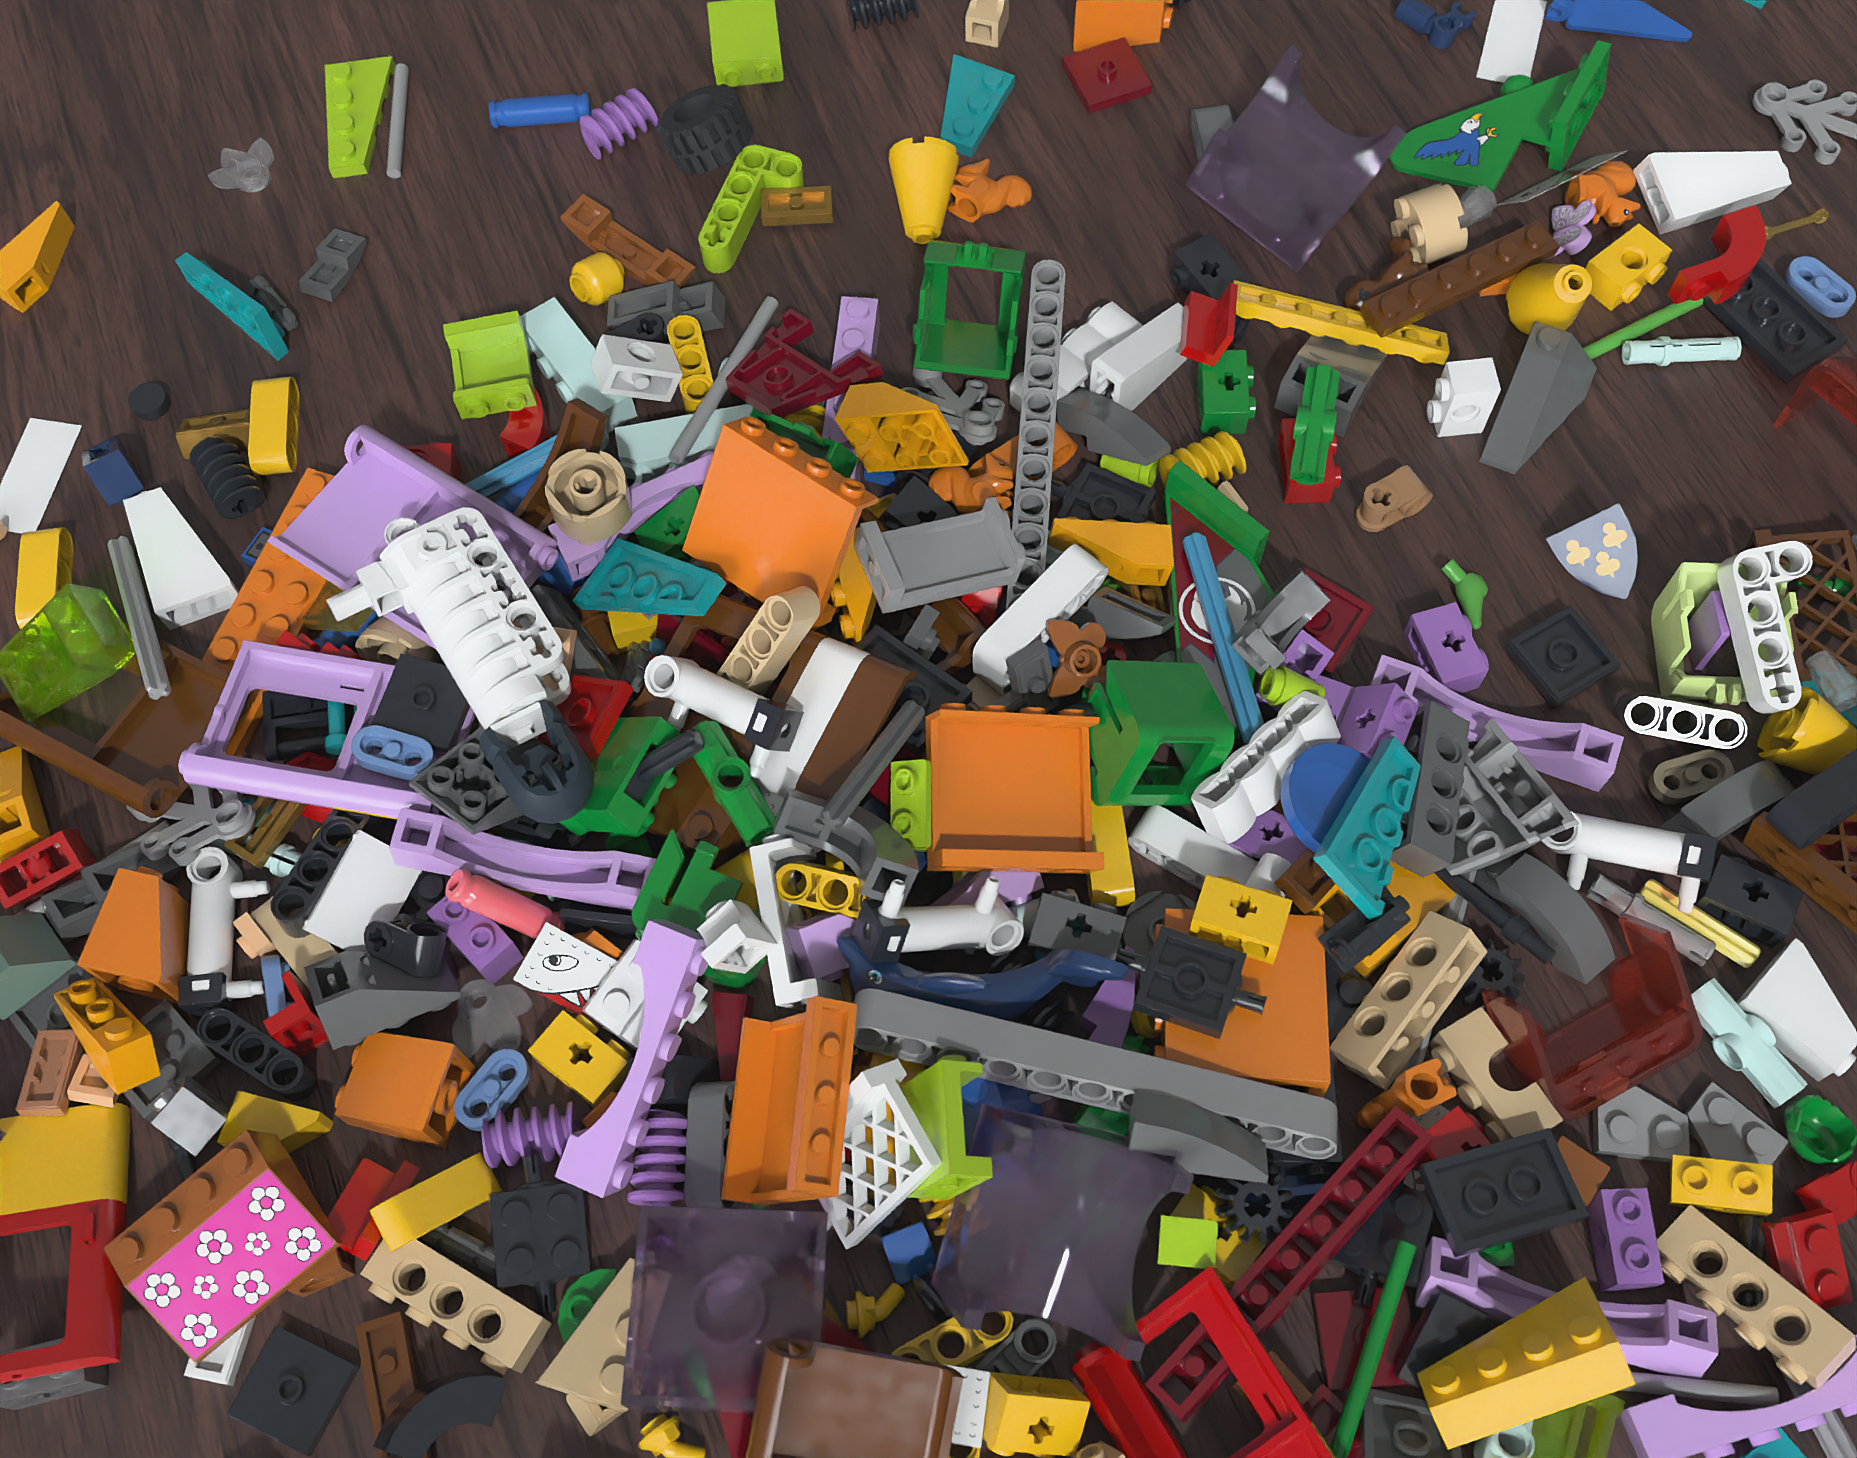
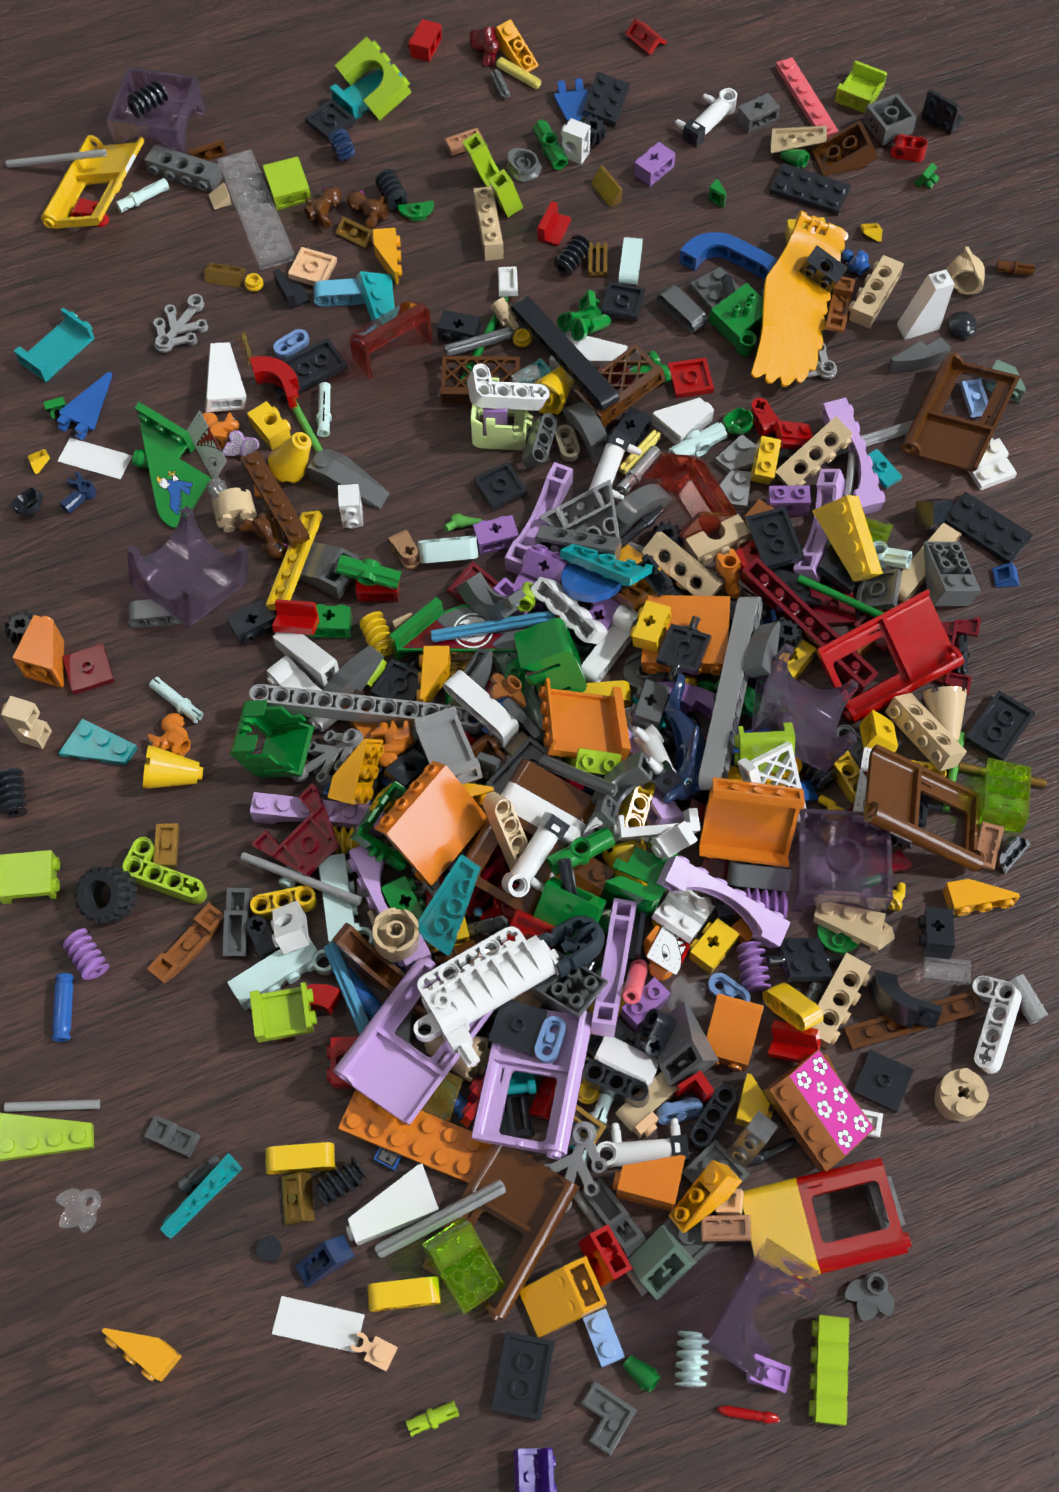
camera: 90 degrees left, 0 degrees up
(597, 278) = (209, 962): yellow head -> none
(1047, 200) = (182, 704): none -> light aqua pin
(1187, 1242) = (803, 664): lime panel -> none
(1397, 567) = (448, 549): none -> light aqua beam
(1600, 551) = (445, 460): shield -> none

